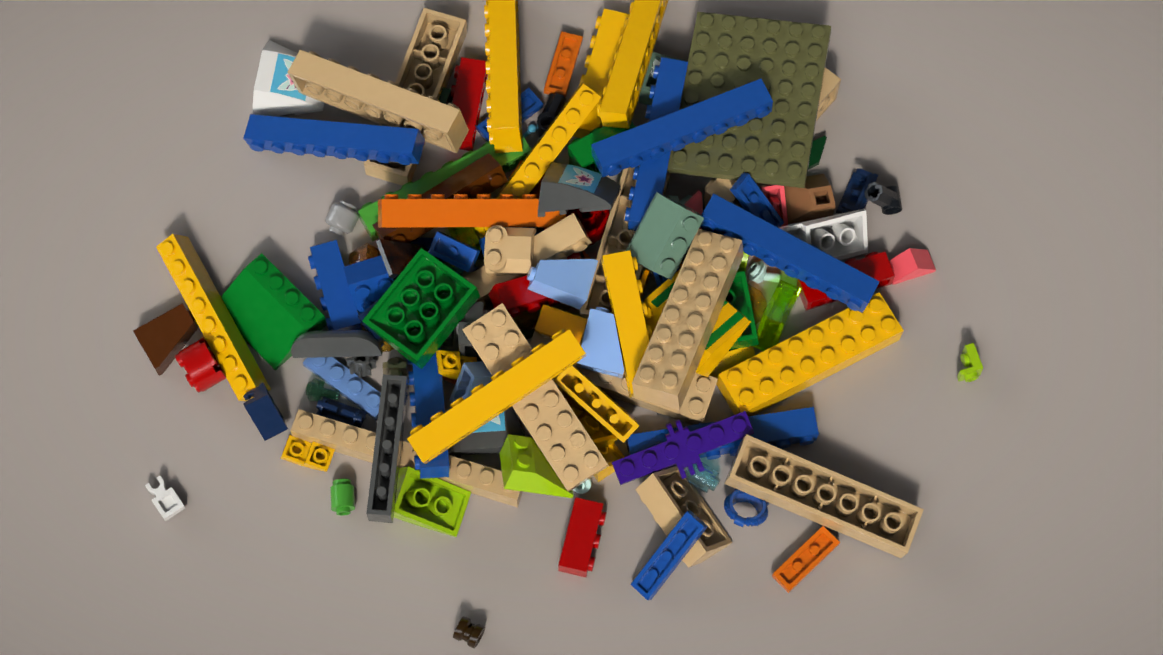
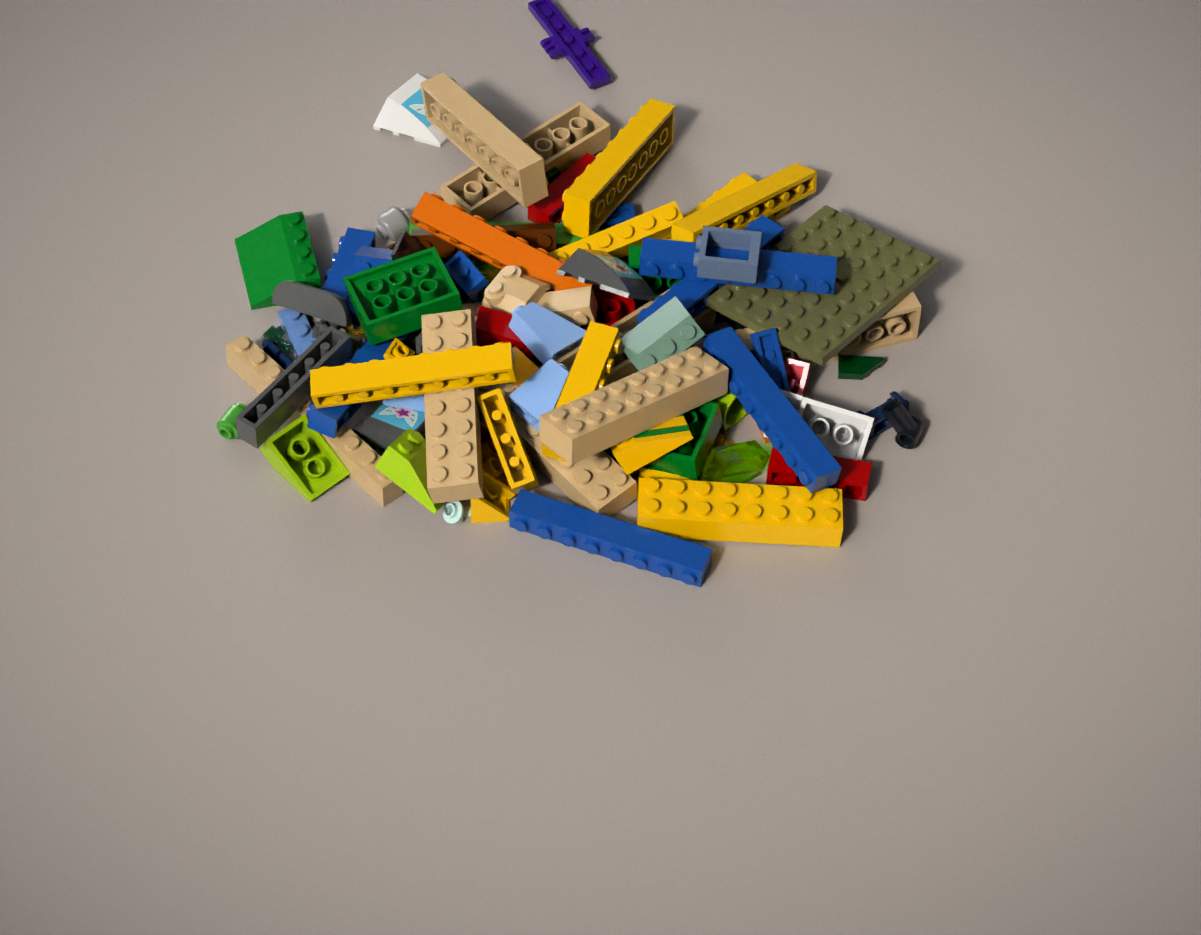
camera: 30 degrees right, 20 degrees down
(166, 336) = (177, 239): reddish brown slope -> none
(166, 500) = (83, 353): white plate -> none
(200, 365) = (188, 268): red brick -> none
(211, 315) = (226, 243): yellow brick -> none
(264, 412) = (214, 323): dark blue hinge -> none
(307, 454) = (228, 379): yellow slope -> none
(334, 139) = (429, 157): blue brick -> none
(469, 632) = (262, 570): dark brown wheel -> none
(563, 64) = (685, 195): orange plate -> none
(582, 537) = (420, 551): red brick -> none
(667, 152) = (727, 268): none -> sand blue window
(669, 499) = (528, 579): tan slope -> none
(669, 555) = (487, 594): blue plate -> none
(682, 448) = (563, 519): dark purple hinge -> none
(704, 480) = (568, 557): clear light blue brick -> none
(740, 496) = (603, 593): blue piece -> none
(758, 273) = (742, 432): light aqua plate -> none
(805, 559) = (618, 669): orange plate -> none
(810, 202) = (832, 390): medium nougat slope -> none
(824, 496) = (669, 620): tan brick -> none
(911, 264) = (893, 490): coral slope -> none
(973, 363) = (892, 596): lime bracket -> none

